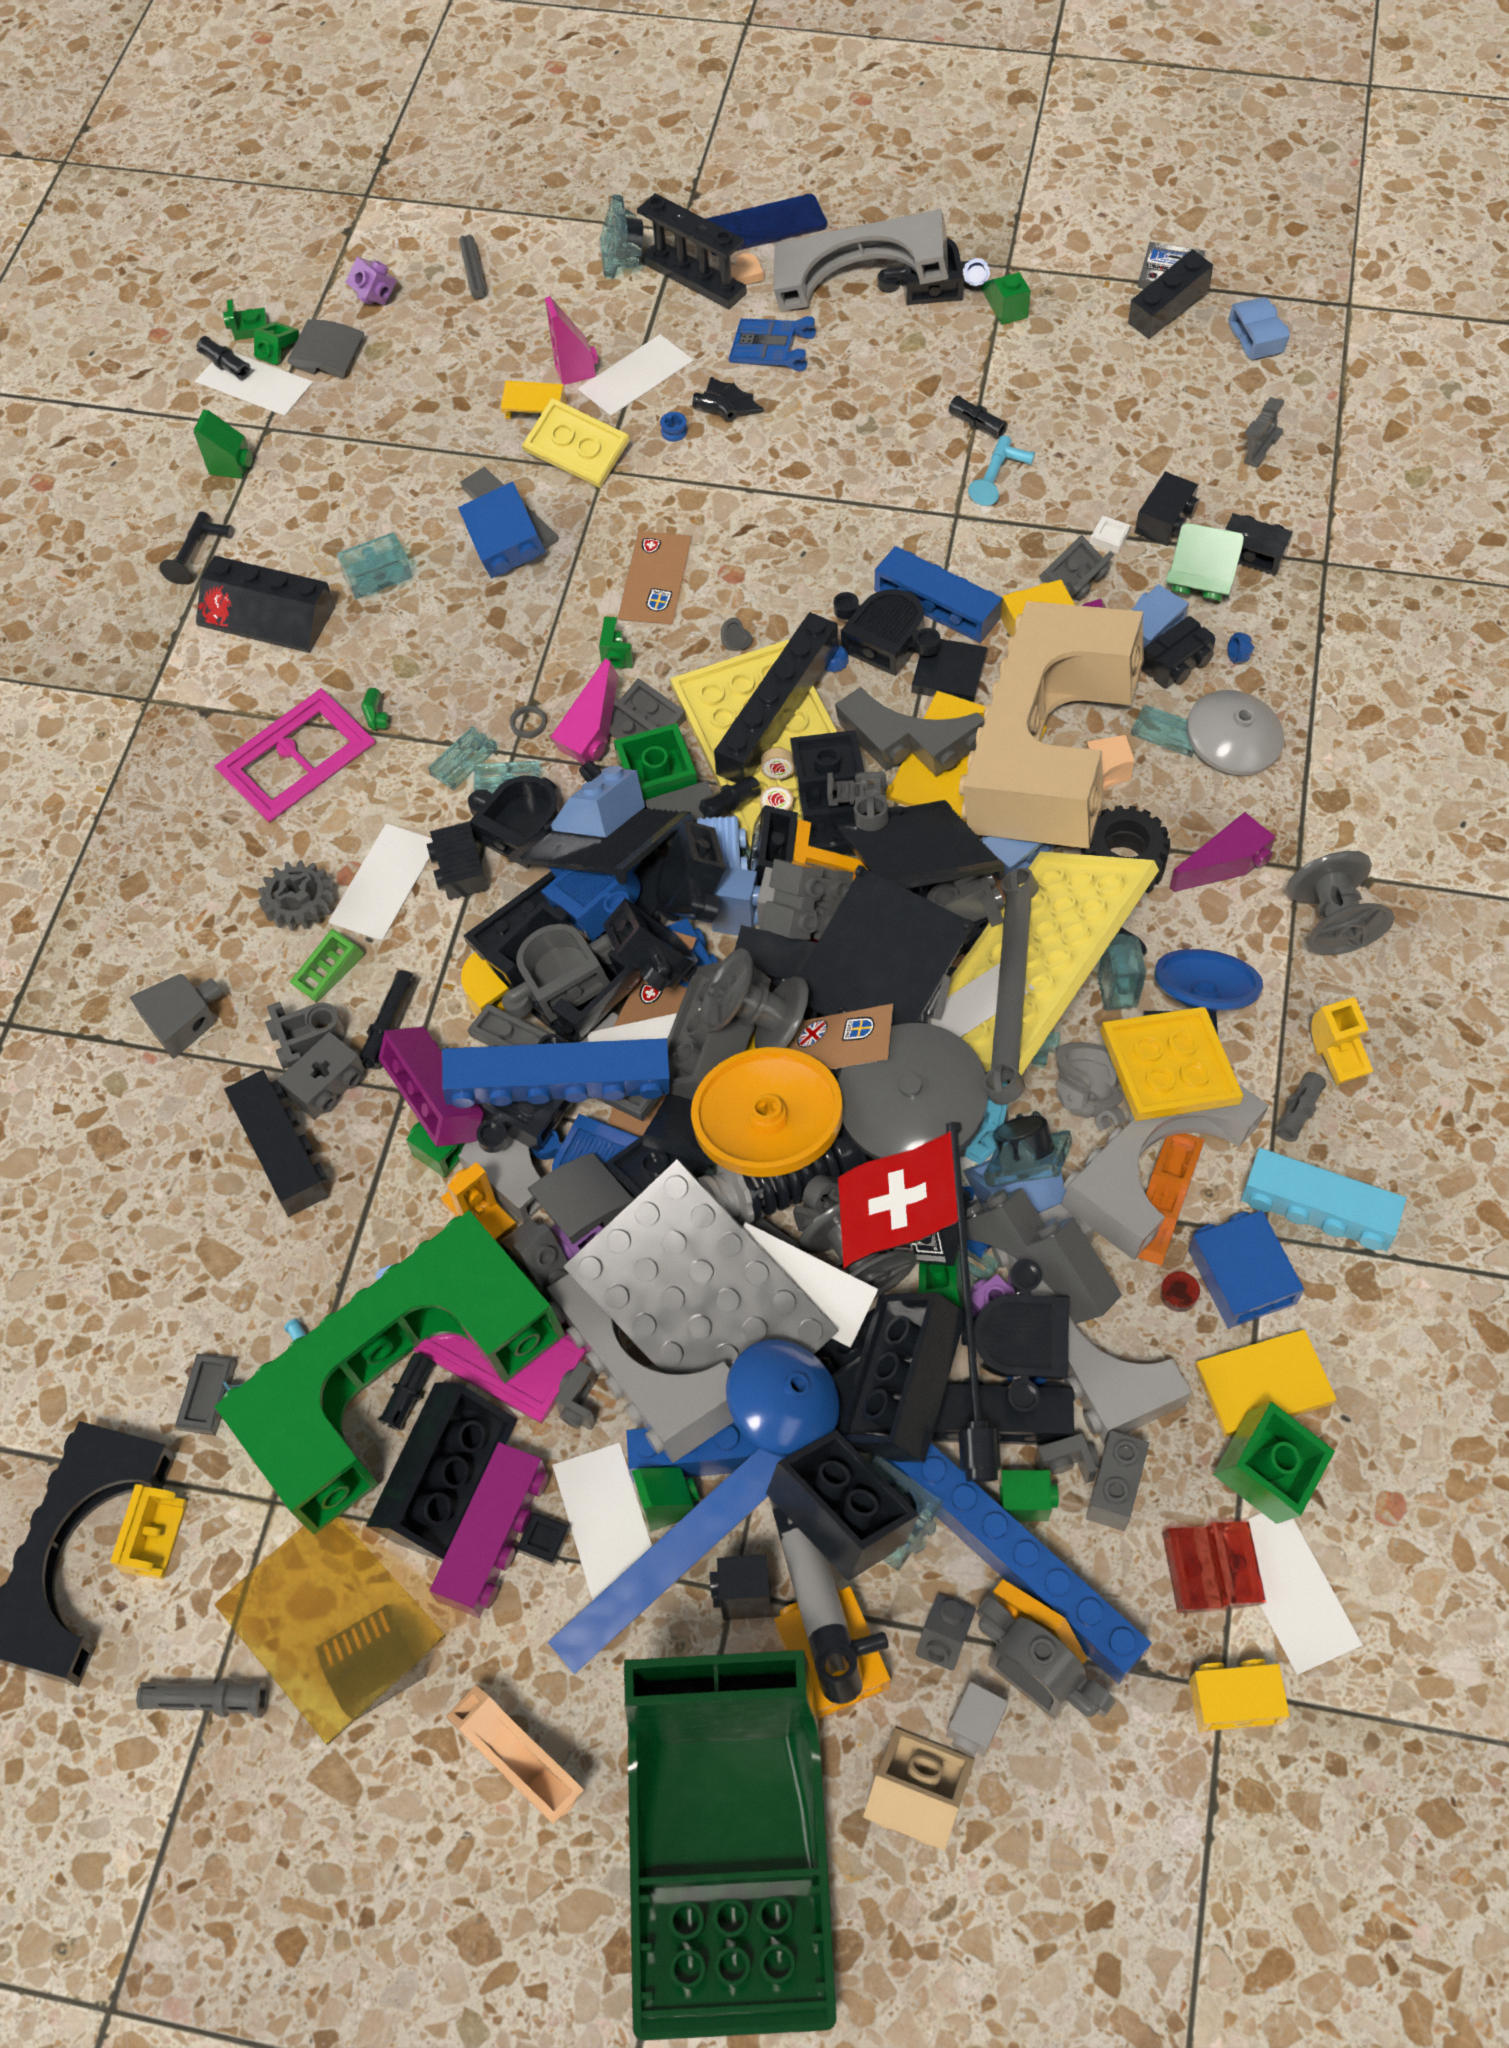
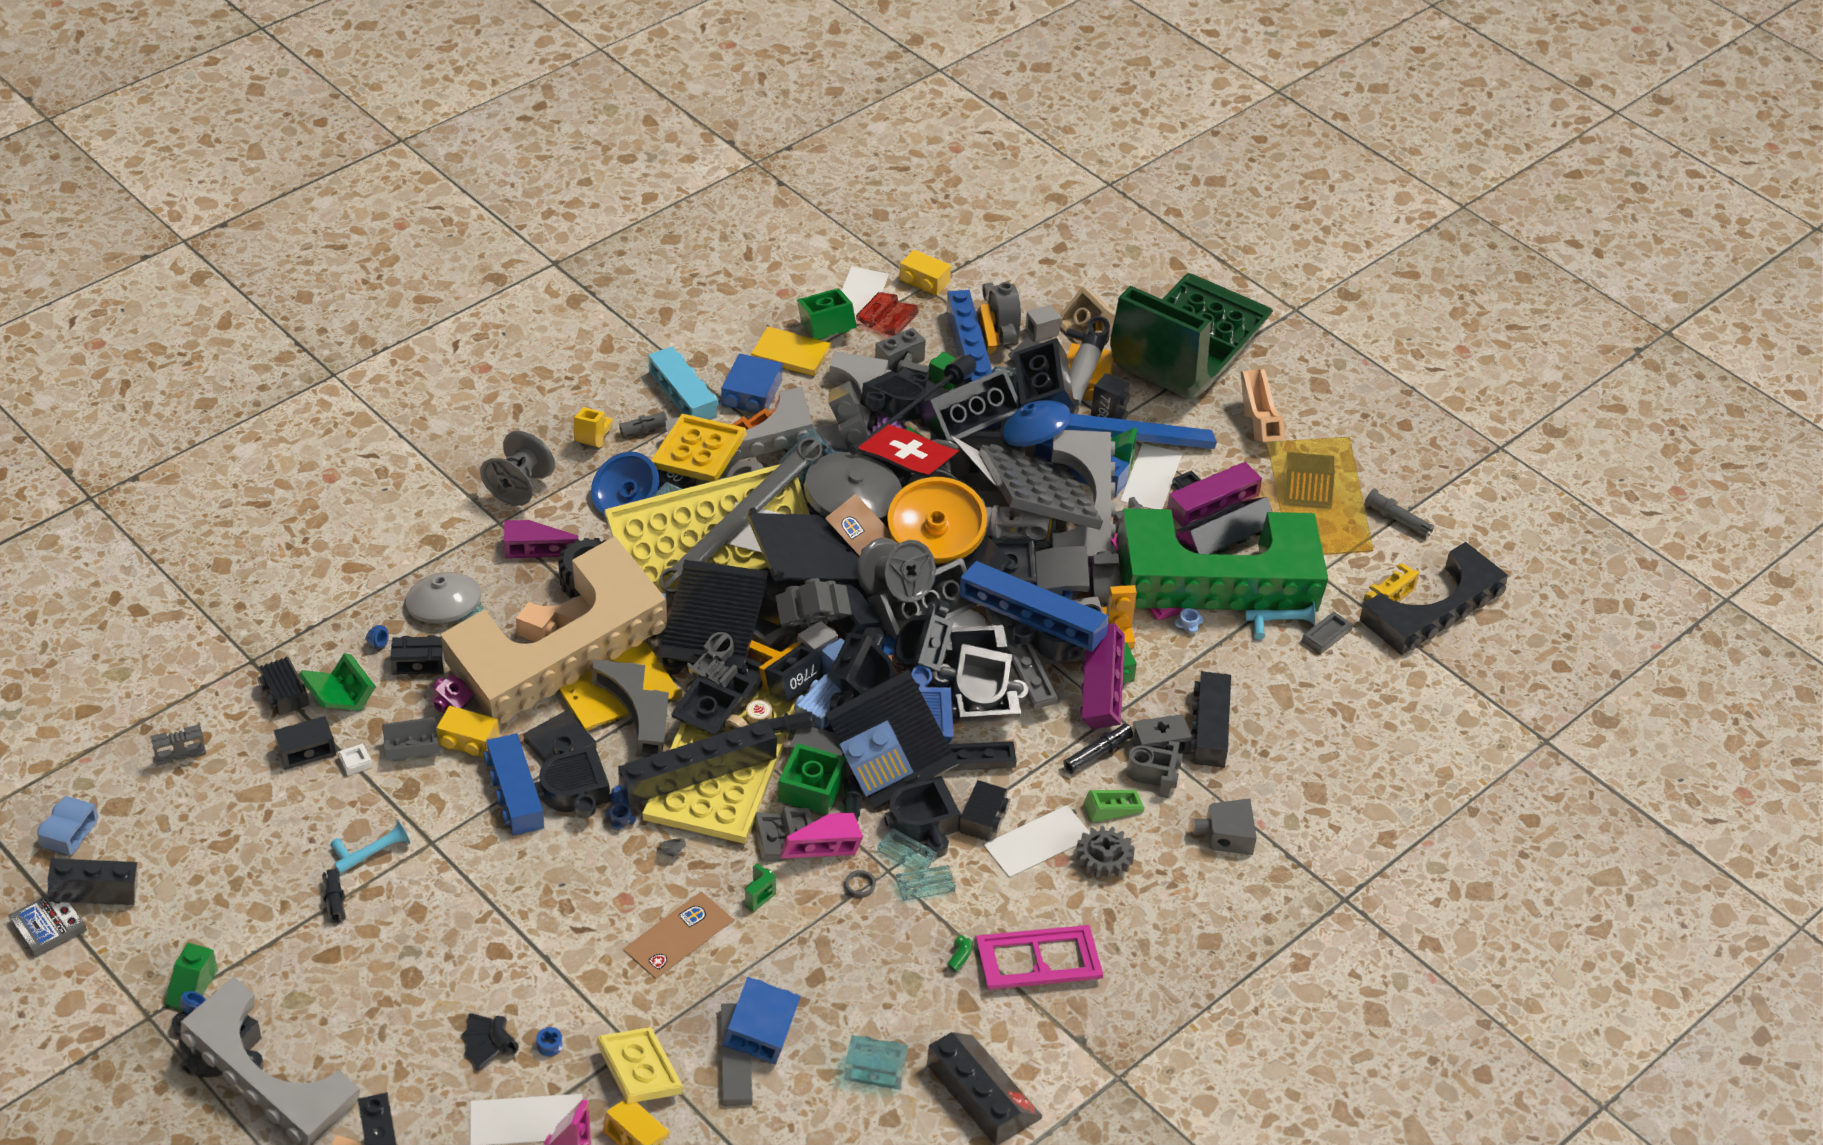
camera: 150 degrees left, 15 degrees down
(481, 985) = (1023, 731): yellow brick -> none
(770, 342) = (403, 1072): blue flag -> none
(1160, 612) = (408, 680): medium blue brick -> none

